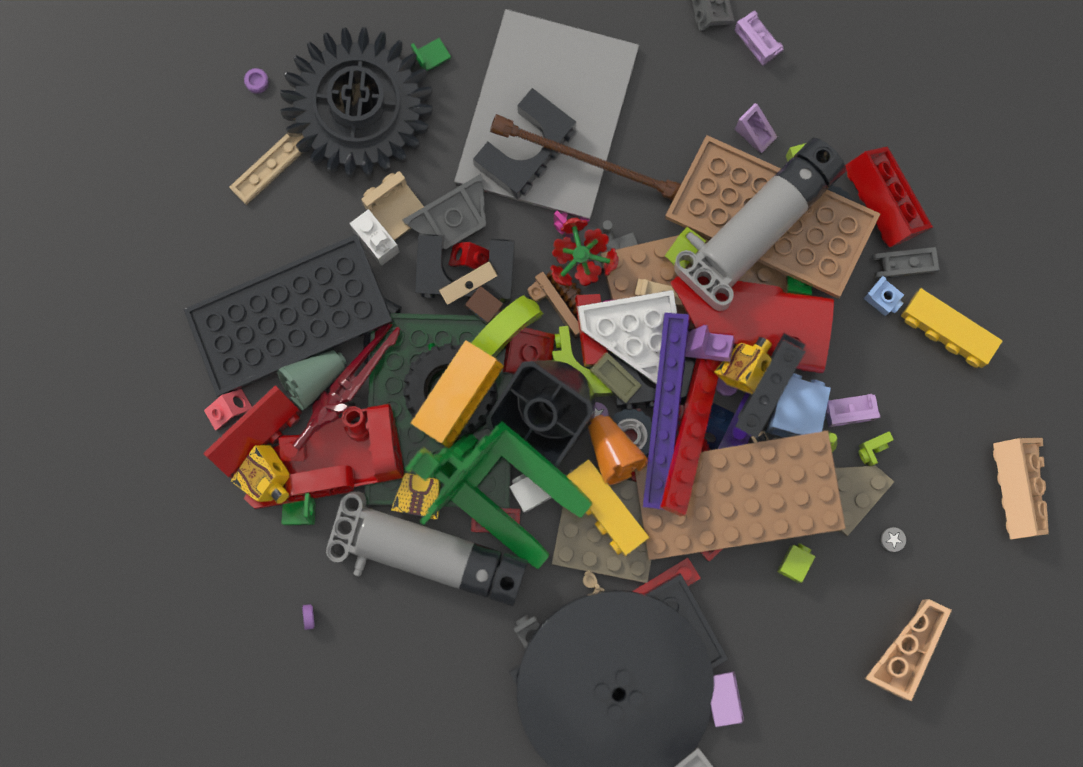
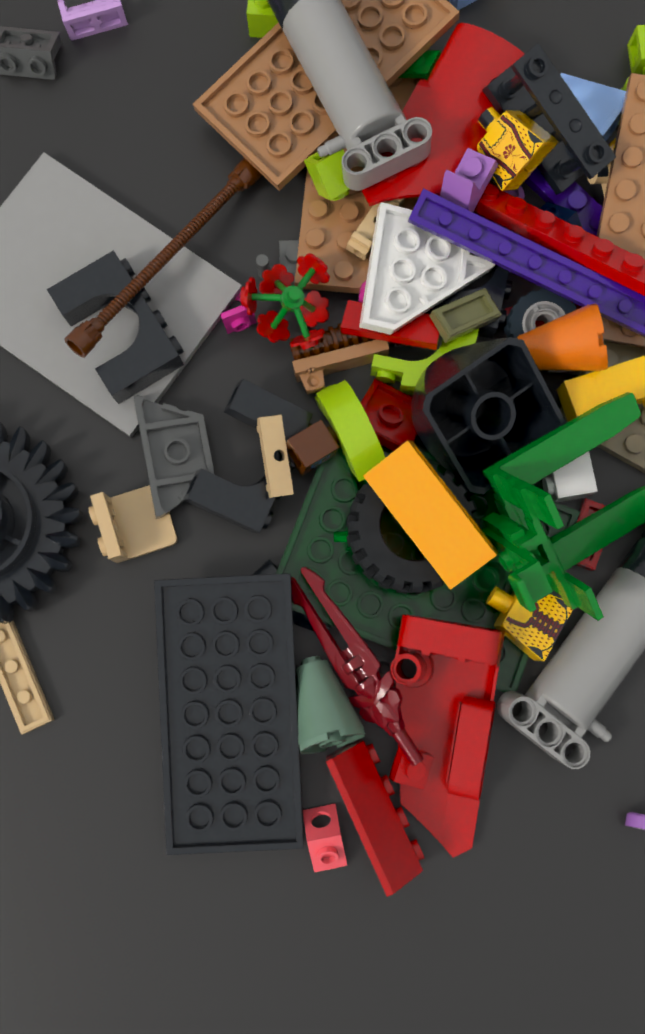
camera: 65 degrees left, 0 degrees up
(263, 475) = (439, 821): torso -> none
(299, 512) = (499, 788): green bracket -> none
(375, 237) = (165, 561): white hinge -> none
(472, 255) = (238, 444): red bracket -> none
(756, 128) = (203, 53): lavender slope -> none
(852, 410) = (593, 57): lavender hinge -> none

